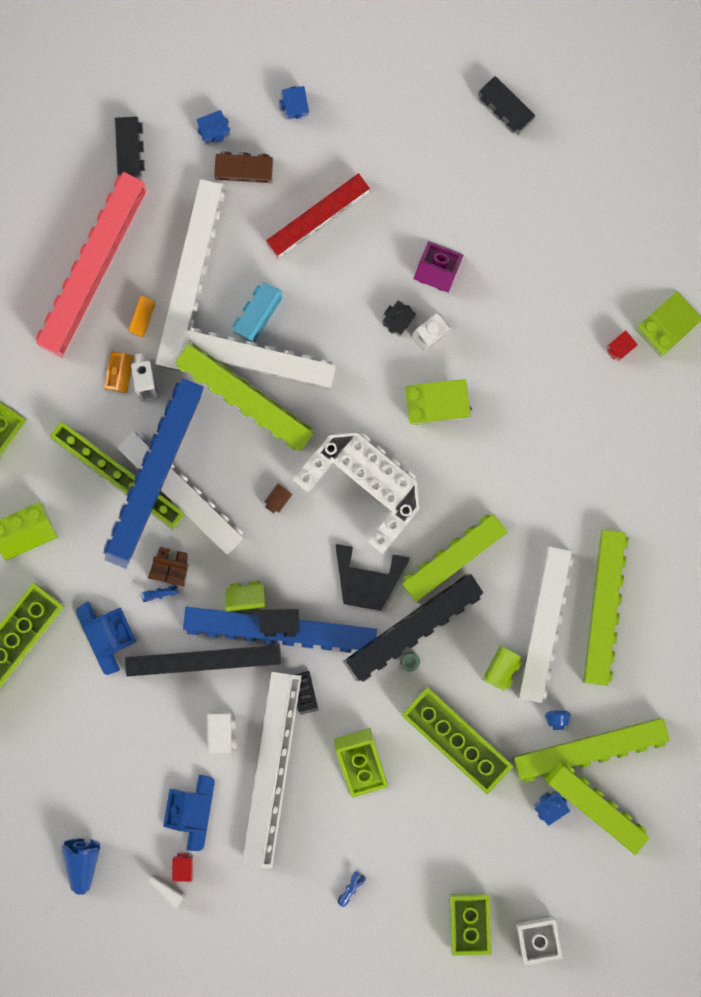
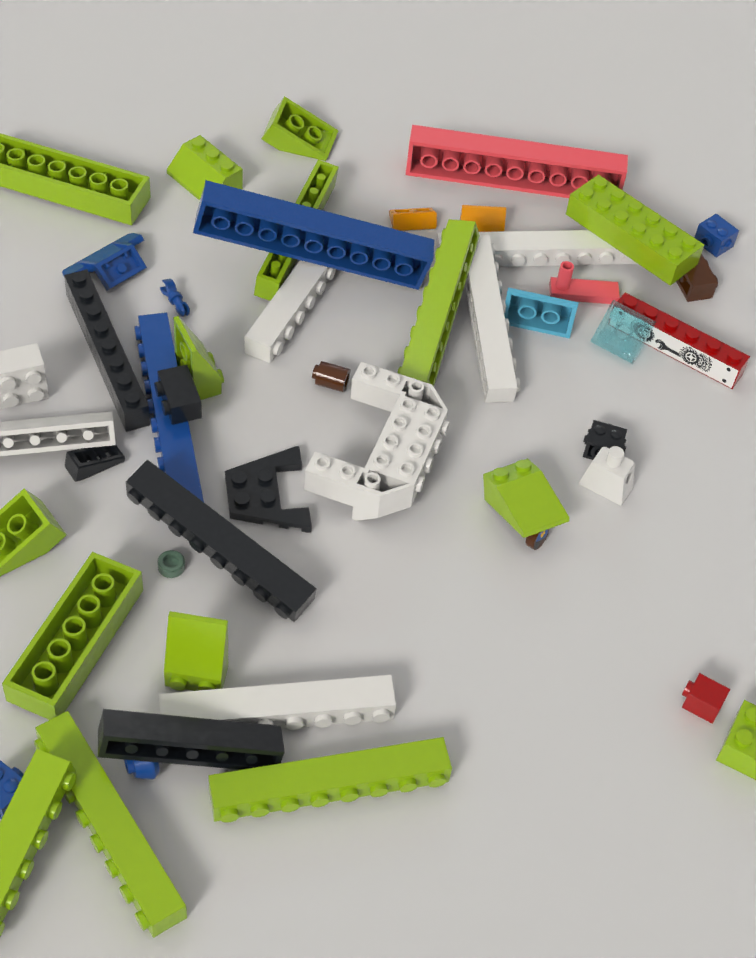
camera: 65 degrees right, 35 degrees down
(129, 146) = (655, 175): black brick -> none
(144, 378) = (418, 222): white torso -> none
(161, 565) = (205, 298): reddish brown hips -> none
(205, 204) = (634, 229): none -> lime brick
(239, 264) = (580, 289): none -> coral piece
(300, 257) = (623, 331): none -> clear light blue plate
(438, 267) = (687, 466): magenta slope -> none
(454, 558) = (335, 576): lime brick -> none
(562, 688) = (188, 740): none -> black brick

